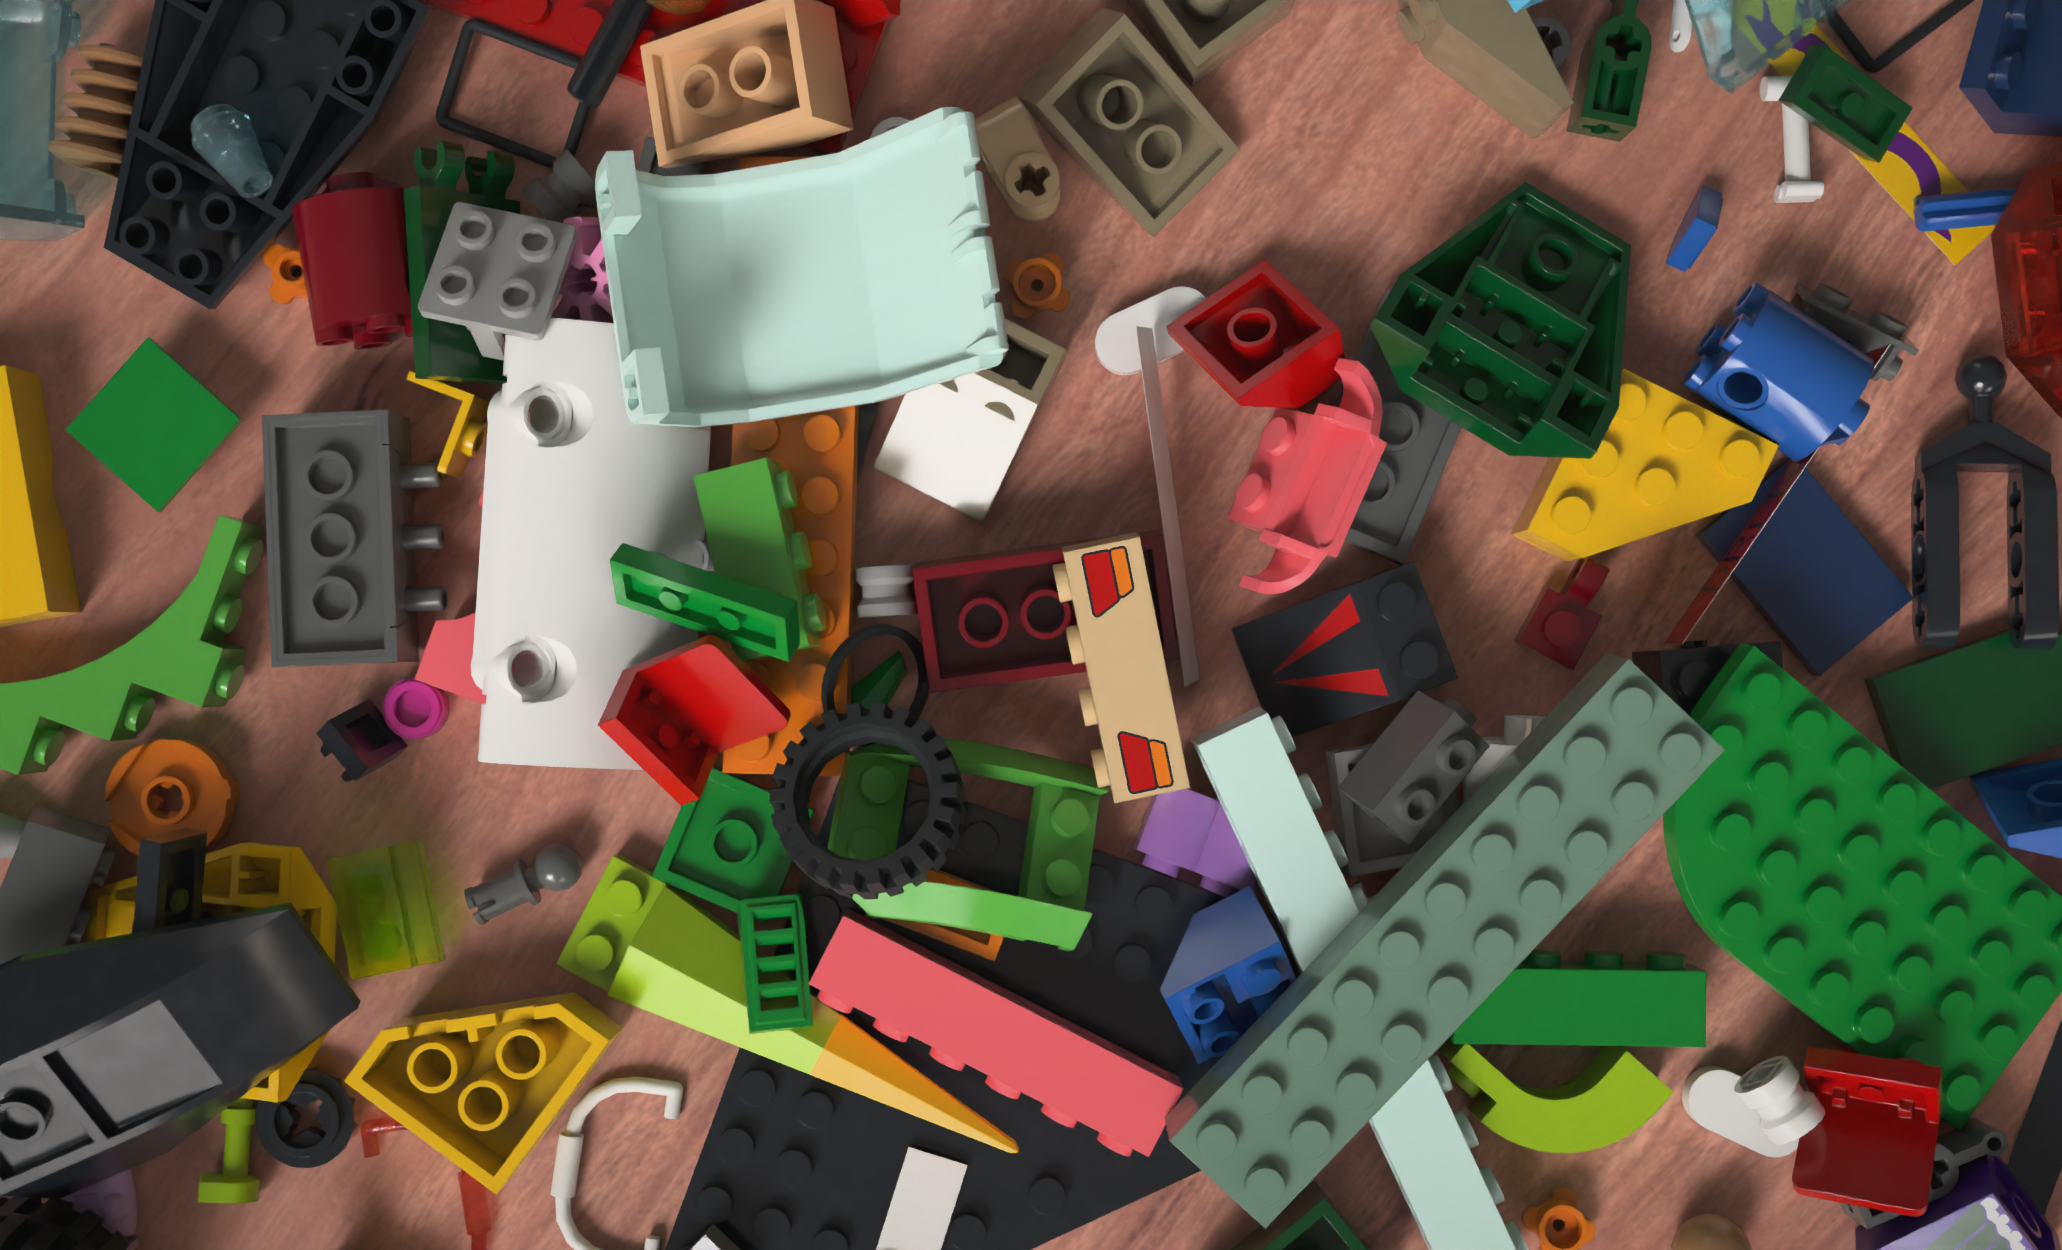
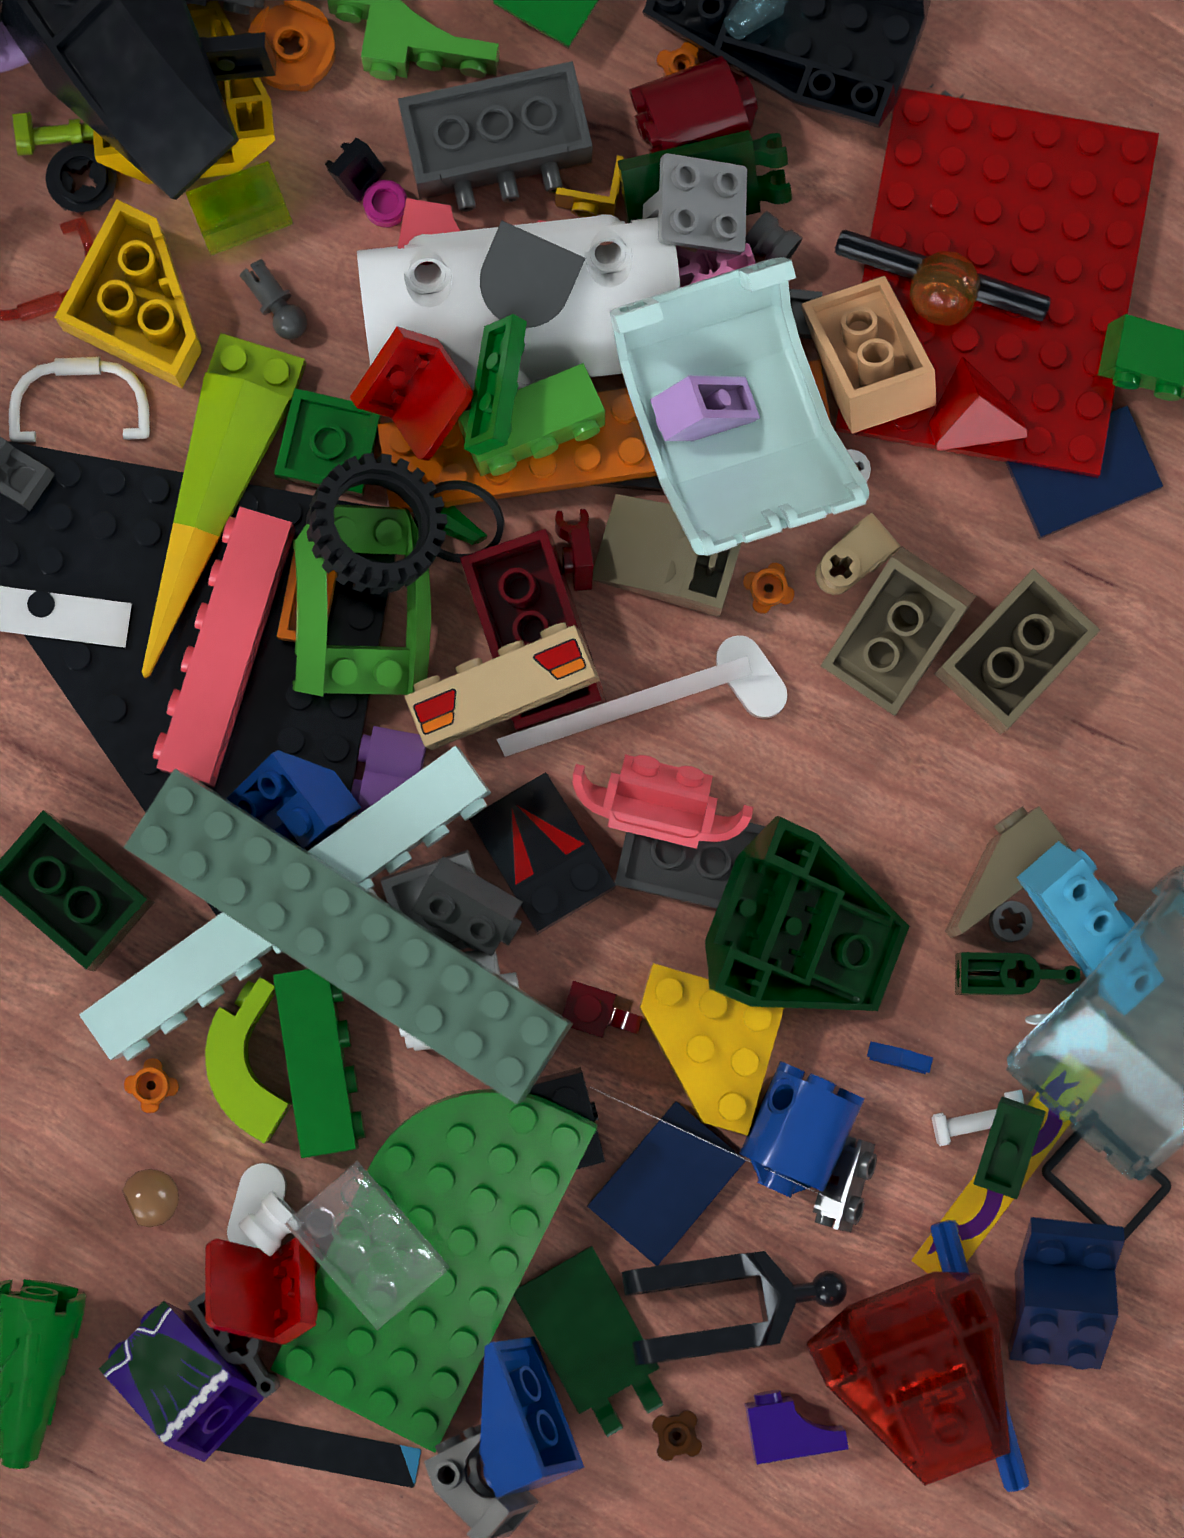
camera: 70 degrees right, 5 degrees down
(490, 138) = (802, 183): black piece -> none
(557, 530) = (527, 276): none -> dark grey tile
(771, 909) = (286, 474): green slope -> none
(784, 322) = (703, 407): none -> lavender slope
(885, 591) = (527, 515): light grey wheel -> none
(953, 533) = (578, 557): none -> dark red plate
(1262, 340) = (754, 751): red slope -> none
(1848, 981) = (367, 1245): none -> clear plate

